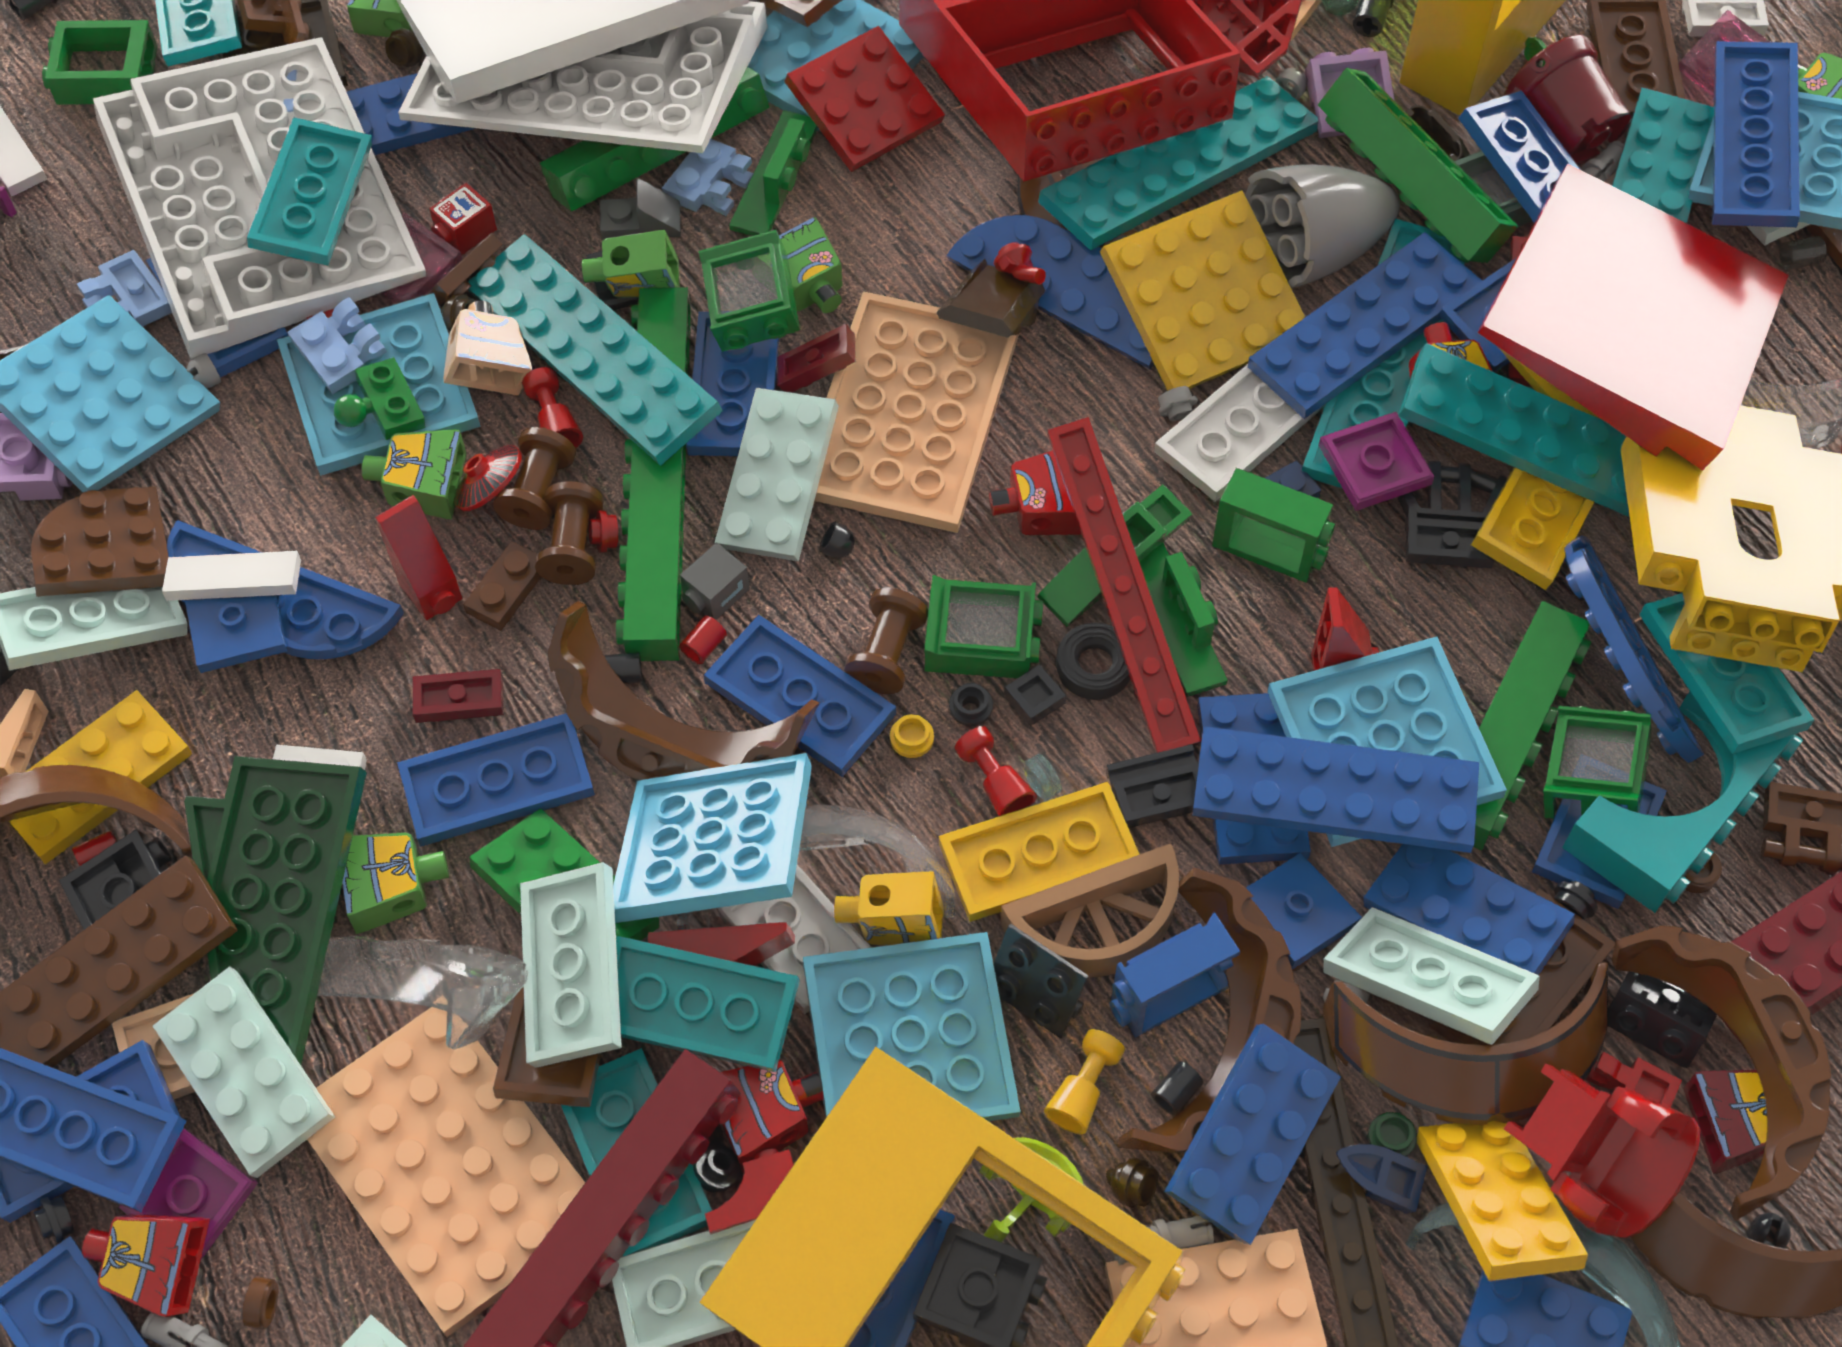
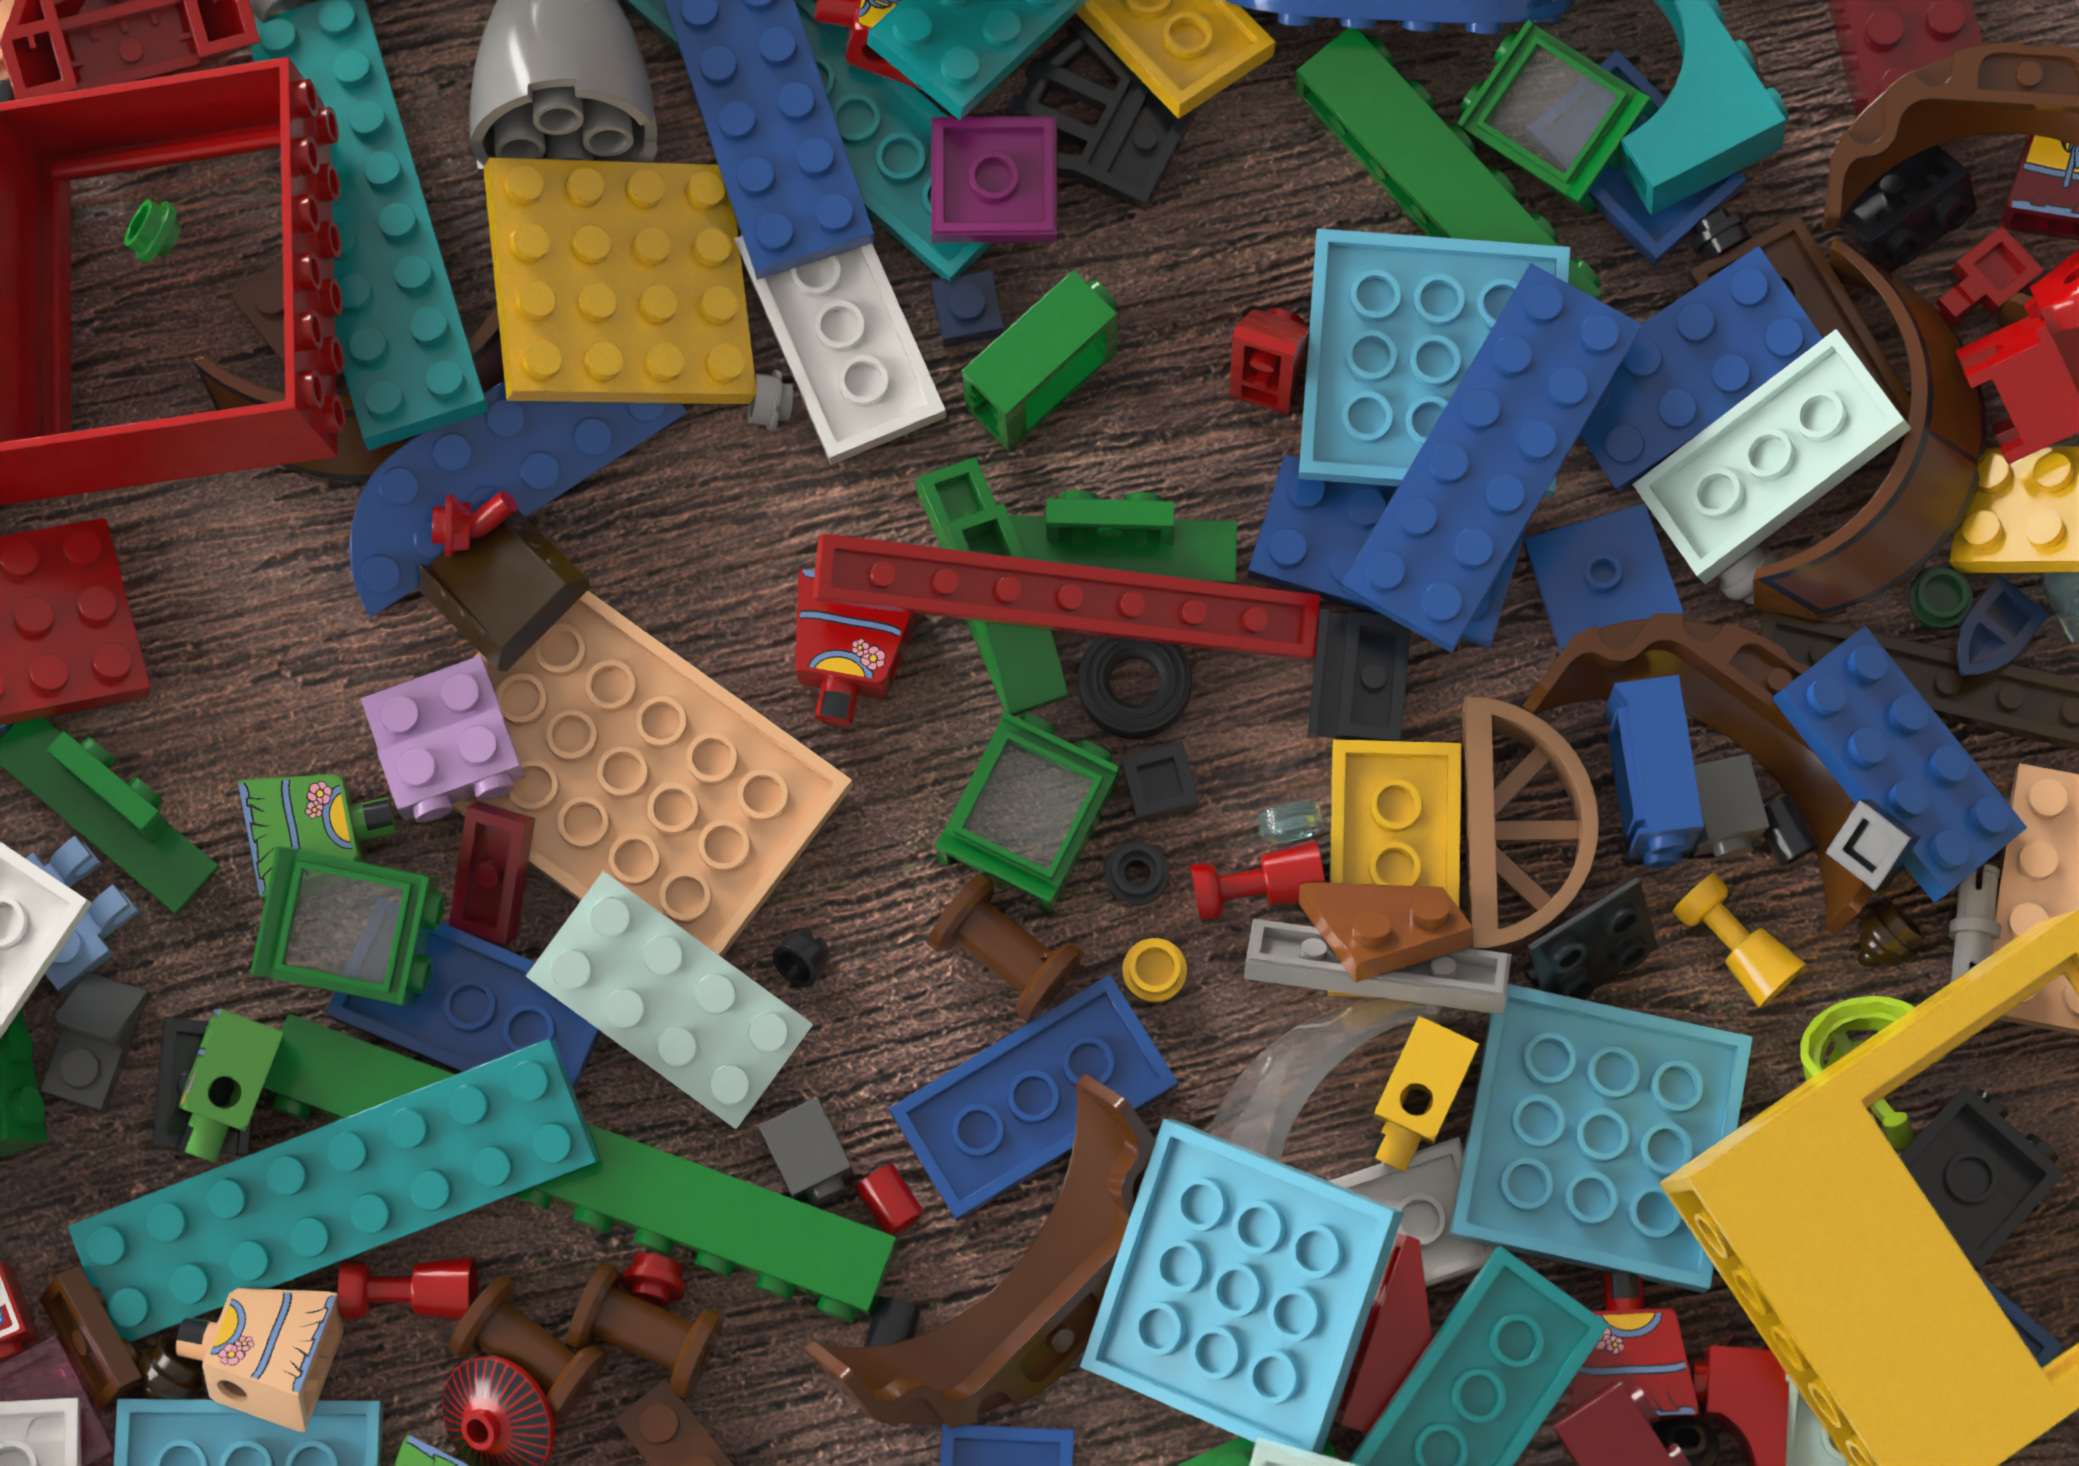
camera: 65 degrees left, 15 degrees up
(883, 306) = (443, 740): none -> lavender plate
(964, 852) = (1303, 959): none -> light grey tile
(992, 845) = (1385, 925): none -> dark orange wing
(1101, 25) = (153, 230): none -> green plate
(1172, 1035) = (1729, 808): none -> dark grey brick
(1180, 1123) = (1872, 844): none -> plate

